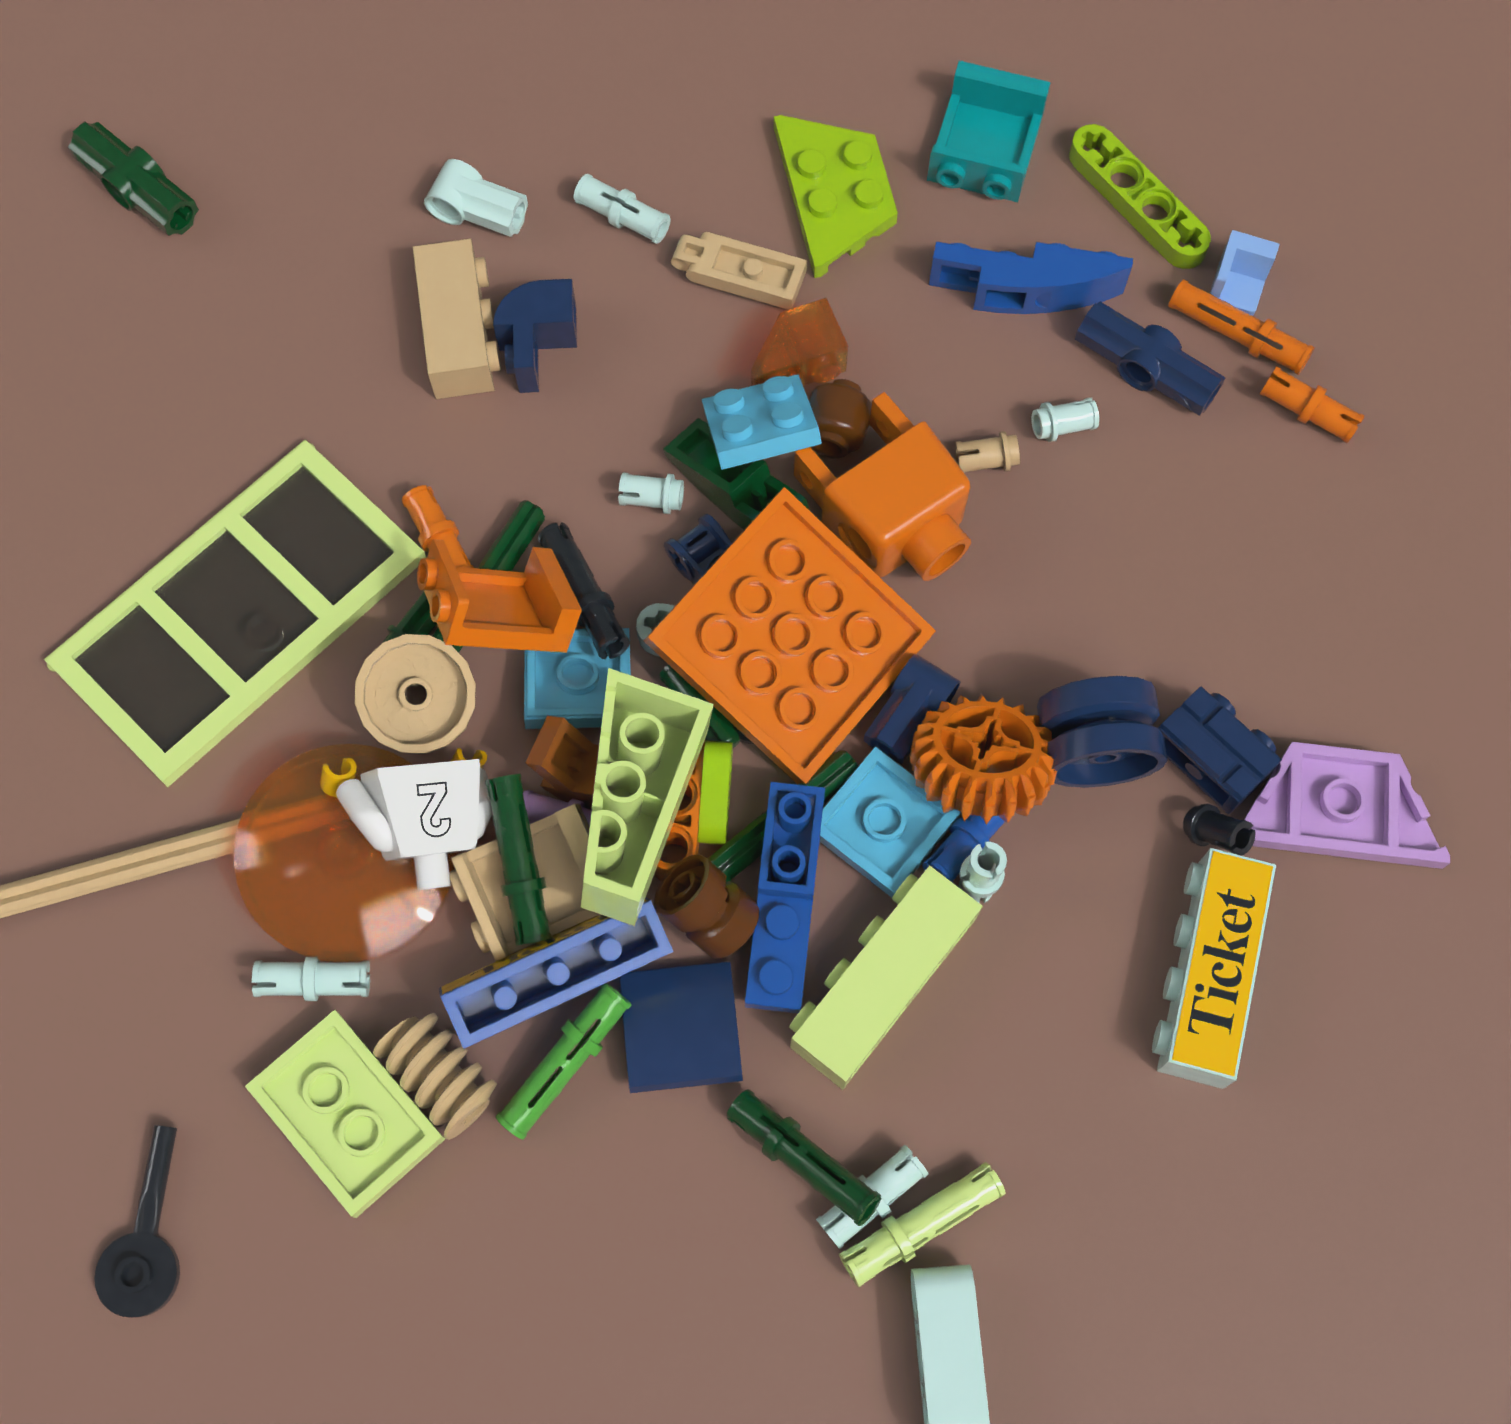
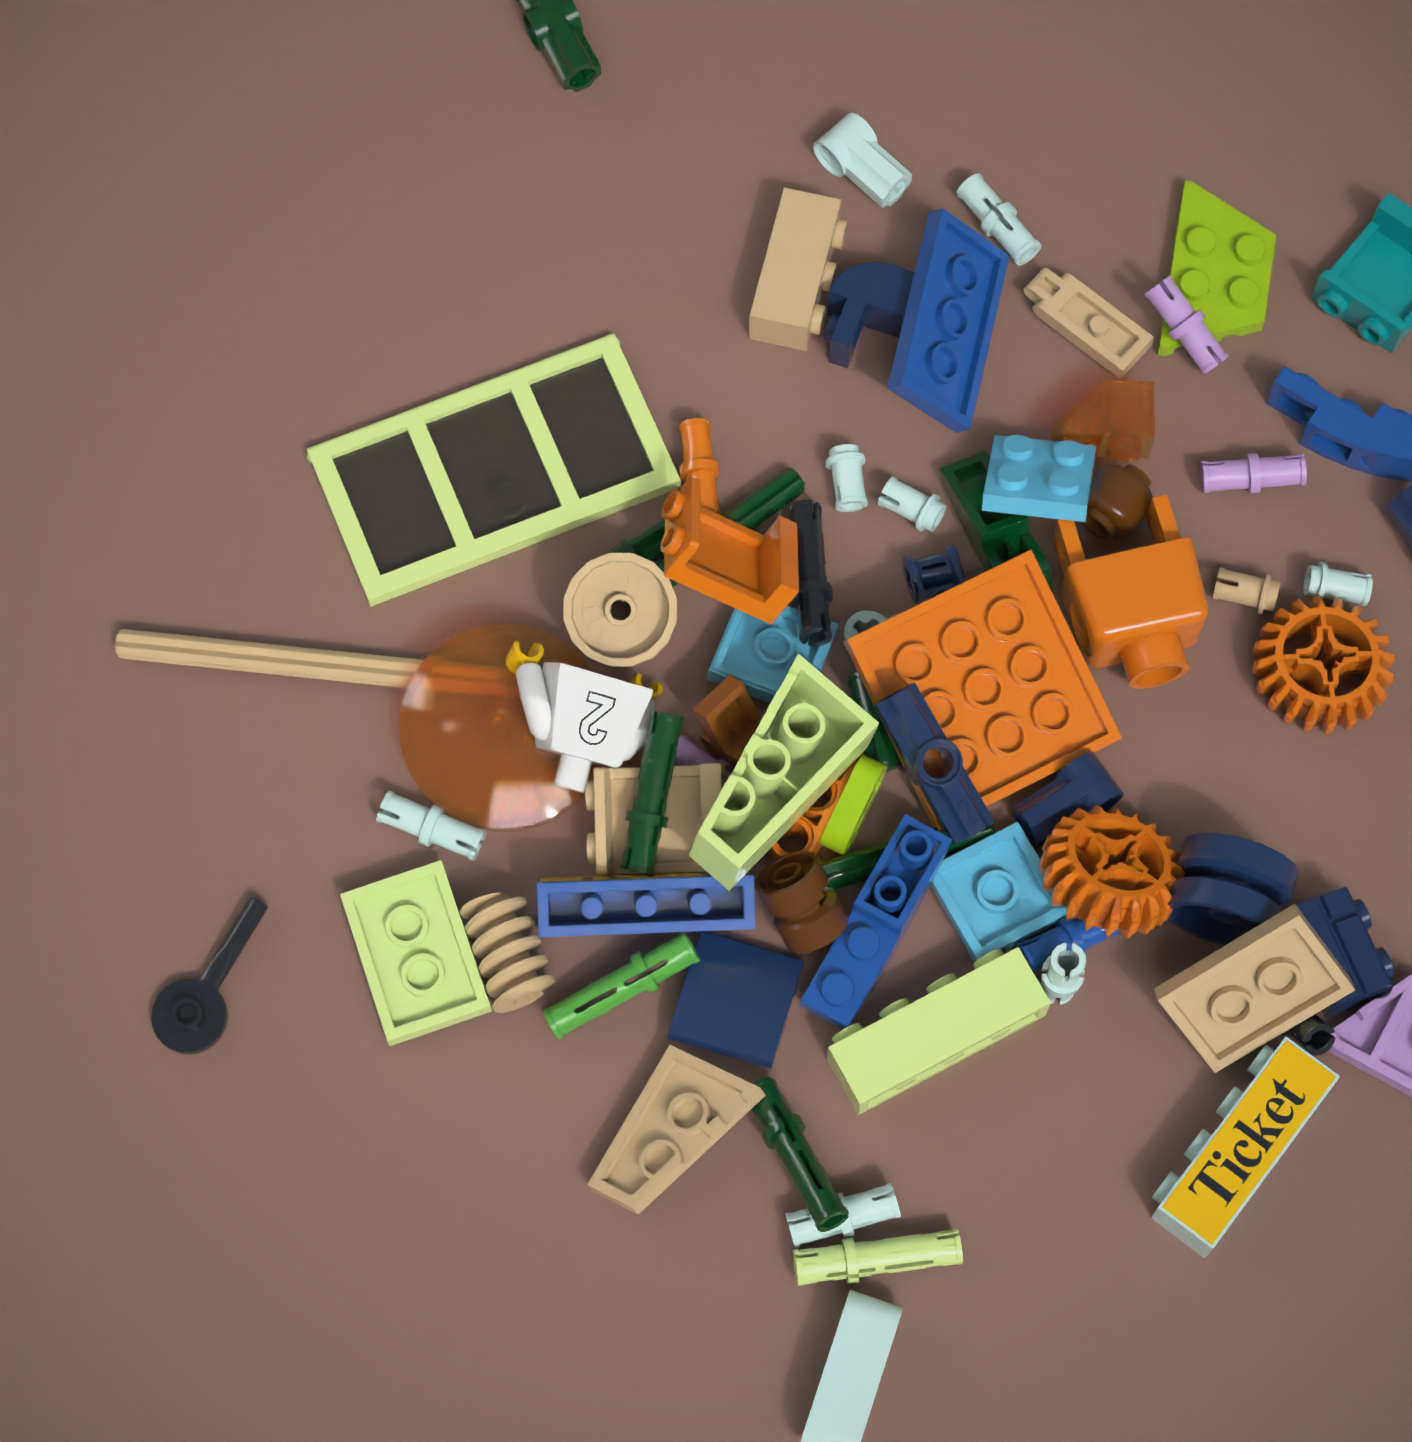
camera: 25 degrees right, 0 degrees up
(575, 480) = (847, 477): none -> light aqua pin
(615, 313) = (948, 321): none -> blue plate
(668, 1183) = (670, 1127): none -> tan wing
(805, 743) = (952, 792): none -> dark blue piece
(832, 238) = (1186, 325): none -> lavender pin
(946, 348) = (1253, 473): none -> lavender pin
(1079, 511) = (1361, 656): none -> orange gear
(1165, 815) = (1254, 988): none -> tan plate

